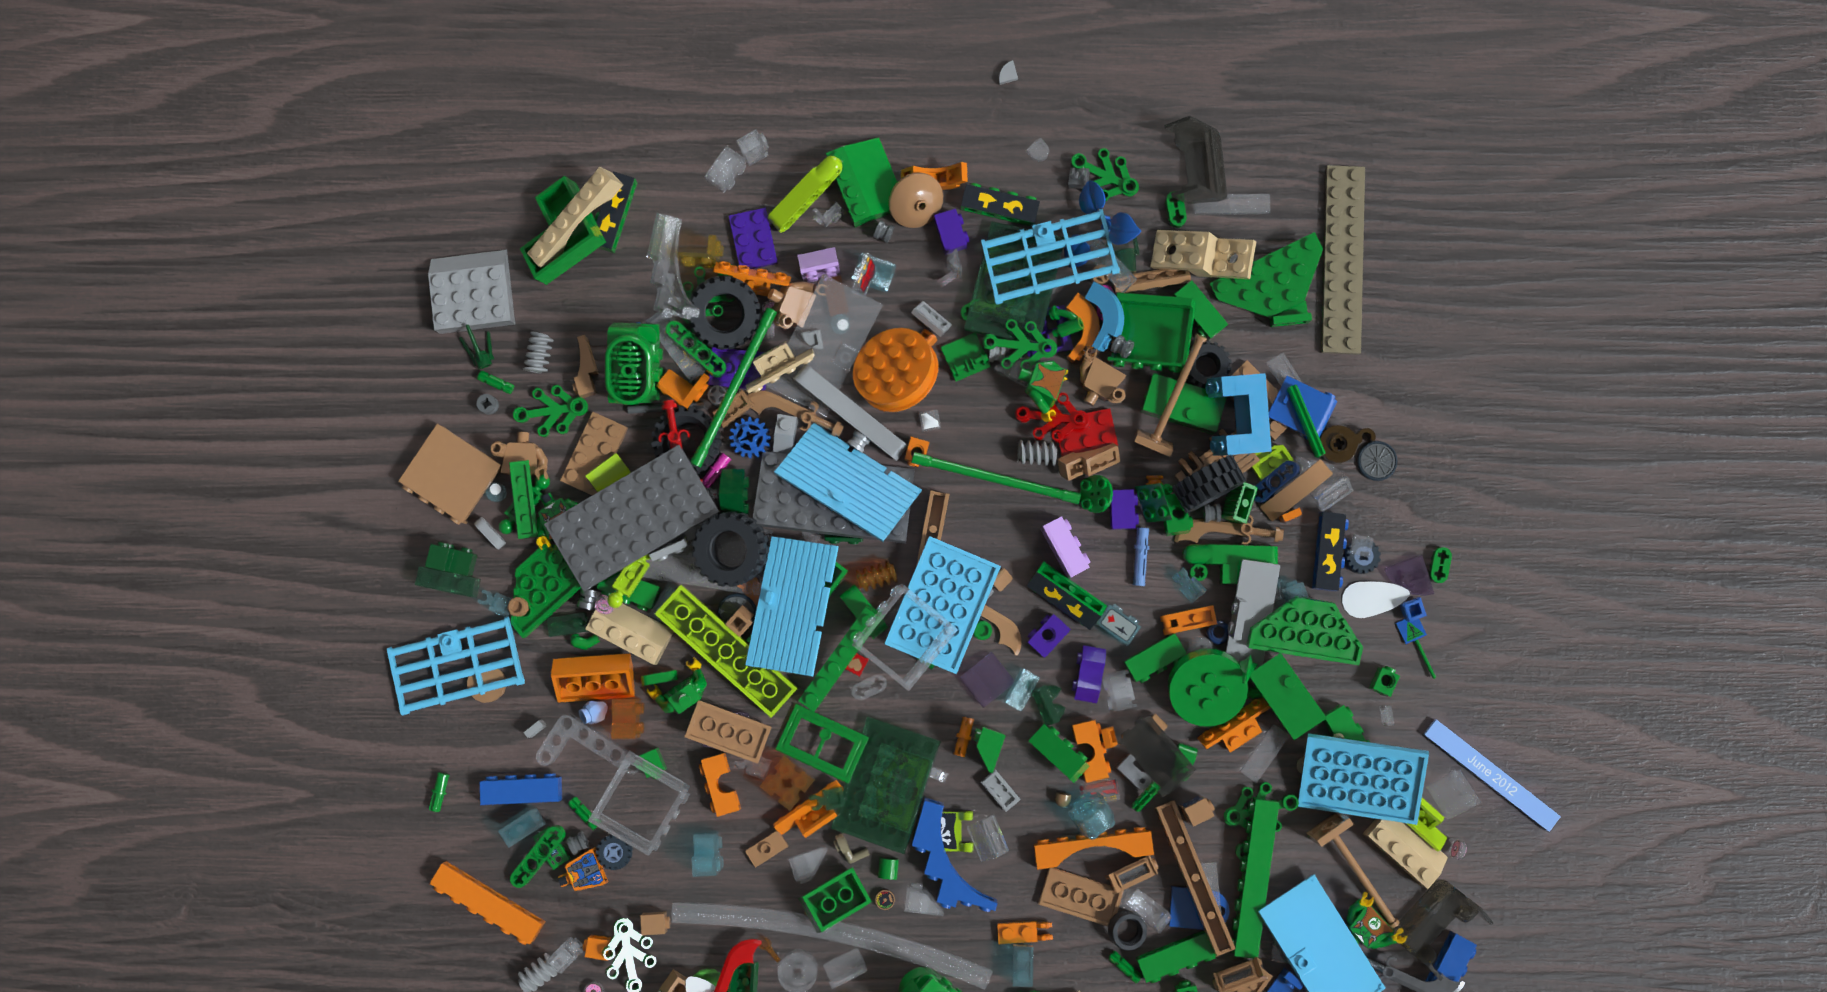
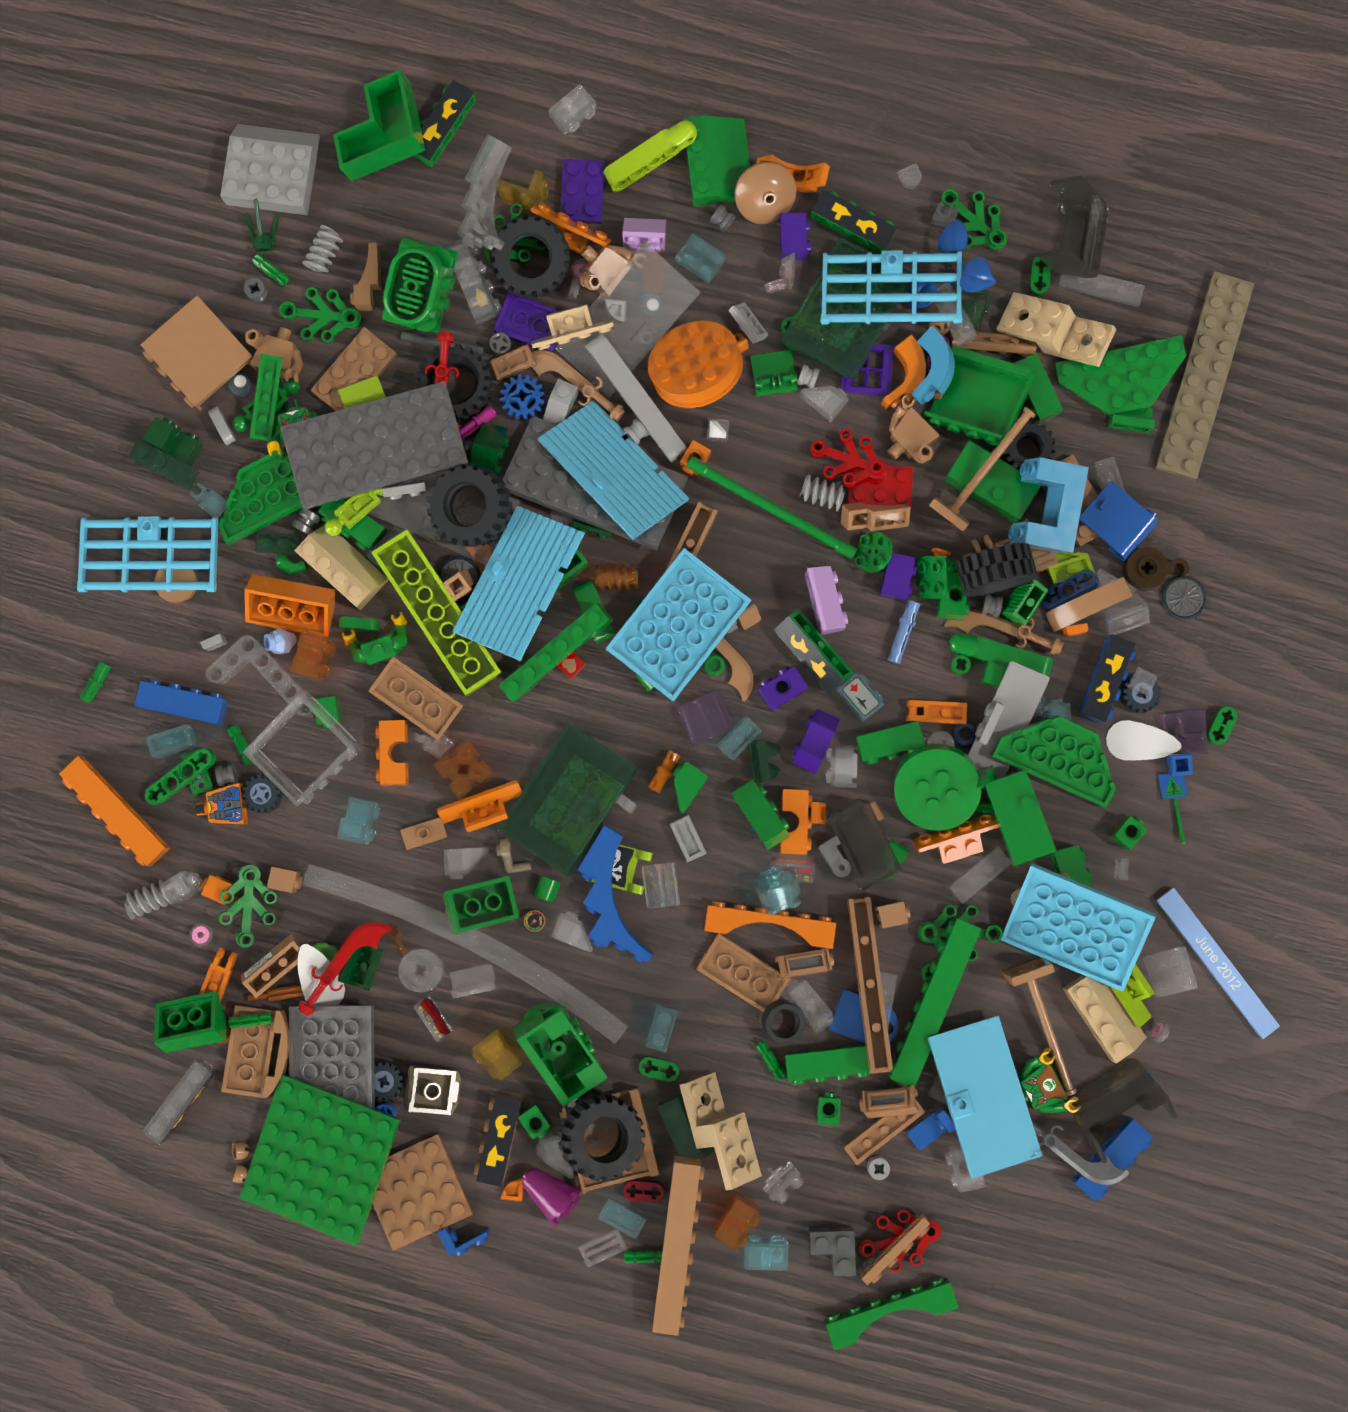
camera: 15 degrees right, 0 degrees up
(518, 606) = (230, 509): medium nougat tile -> none
(596, 191) = (428, 92): tan arch -> none
(602, 605) = (319, 533): clear tile -> none
(682, 390) = (463, 327): orange bracket -> none
(695, 349) = (492, 286): green beam -> none
(753, 147) = (608, 92): clear brick -> none
(764, 325) = (468, 394): green piece -> none
(825, 734) = (518, 729): green door -> none
(830, 216) = (670, 187): clear bracket -> none
(830, 798) = (504, 797): clear green plate -> none
(864, 275) = (689, 256): slope -> none
(868, 682) = (577, 688): clear beam -> none
(927, 657) = (650, 672): clear window -> none
(1008, 73) = (899, 87): light grey tile -> none
(1022, 932) = (670, 994): orange hinge -> none
(1023, 345) = (838, 373): green plant -> none
(1044, 385) = (849, 422): torso -> none
(1063, 799) = (751, 866): medium nougat hinge -> none
(1073, 325) = (890, 369): green plant -> none
(1122, 346) = (943, 403): dark grey wheel -> none
(1145, 796) = (841, 885): green axle -> none
(1189, 587) = (948, 677): clear light blue plate -> none
(1306, 420) = (1118, 533): green axle -> none

